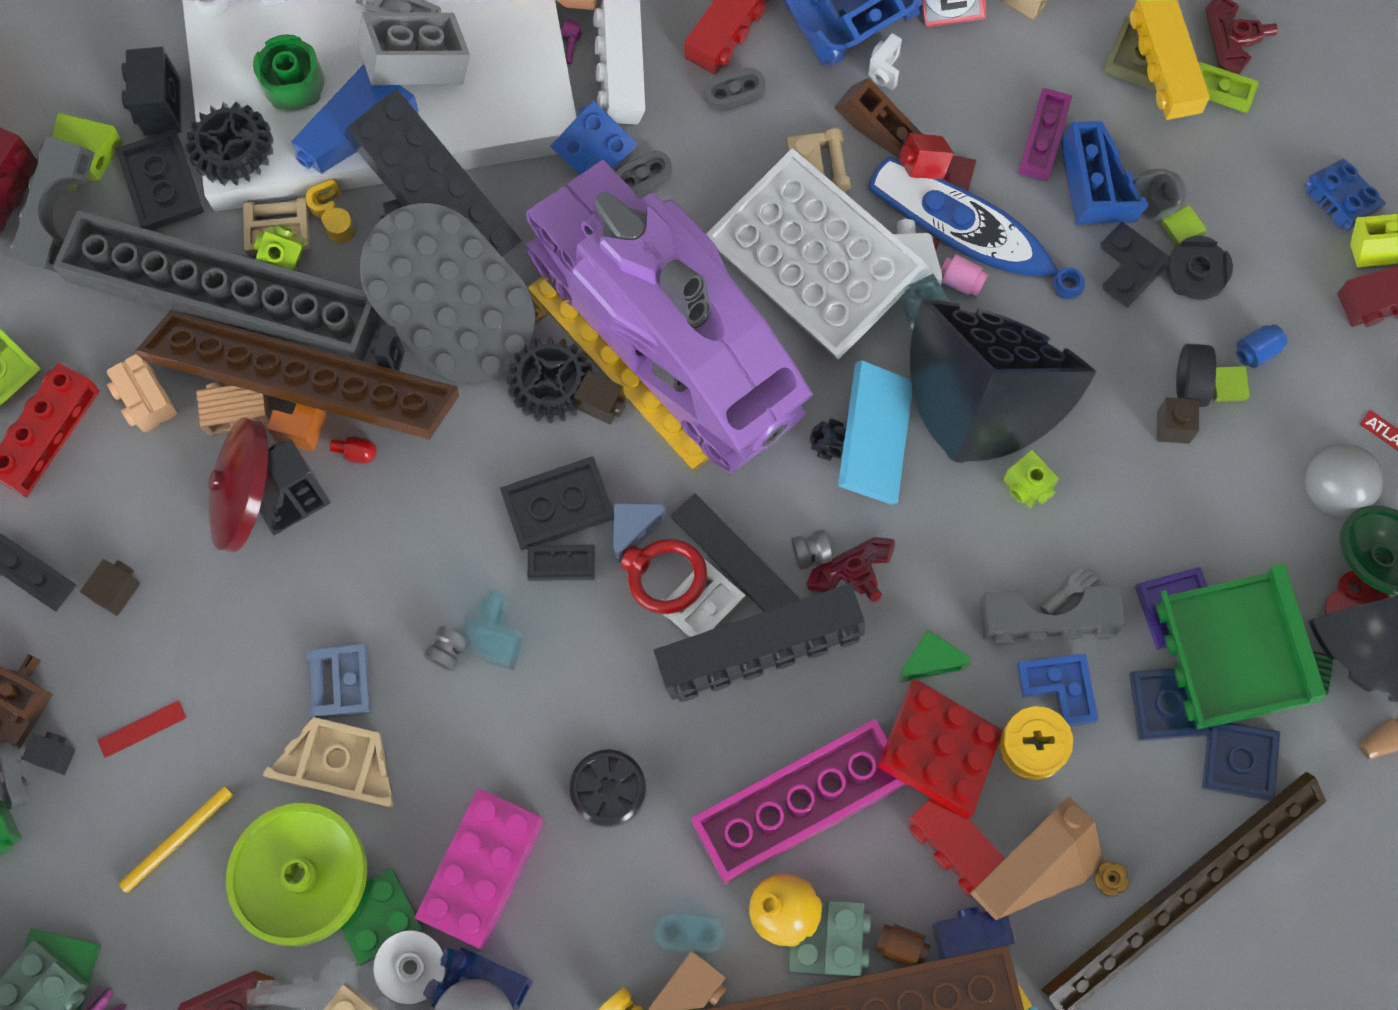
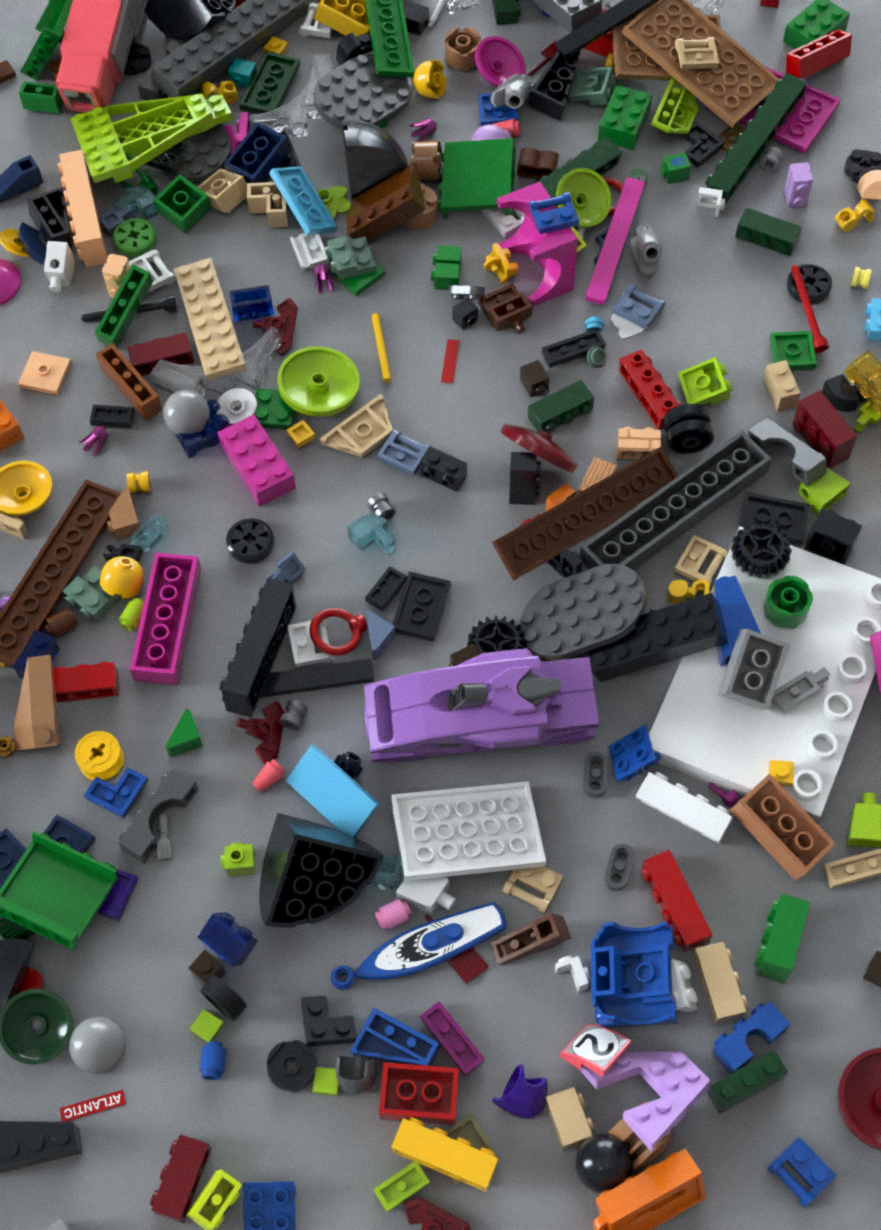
camera: 125 degrees right, 10 degrees down
(23, 530) = (596, 356): none -> sand green plate
(86, 335) = (688, 428): none -> black wheel
(140, 522) = (561, 407): none -> dark green brick
(279, 246) = (677, 547): lime brick -> none
(336, 607) = (443, 469): none -> black brick
(396, 842) = (300, 434): none -> yellow plate
(619, 703) = (288, 568): none -> sand blue plate
(744, 941) = (125, 550): none -> black plate
(822, 855) = (131, 615): none -> lime brick
(906, 523) = (269, 775): none -> coral cone
(926, 156) = (486, 943): red brick -> none
(940, 748) = (134, 699): red plate -> none
(1051, 26) = (523, 1096): none -> dark purple piece
(1129, 422) = (227, 938): none -> clear blue brick
(1133, 117) = (419, 1093): none -> red brick

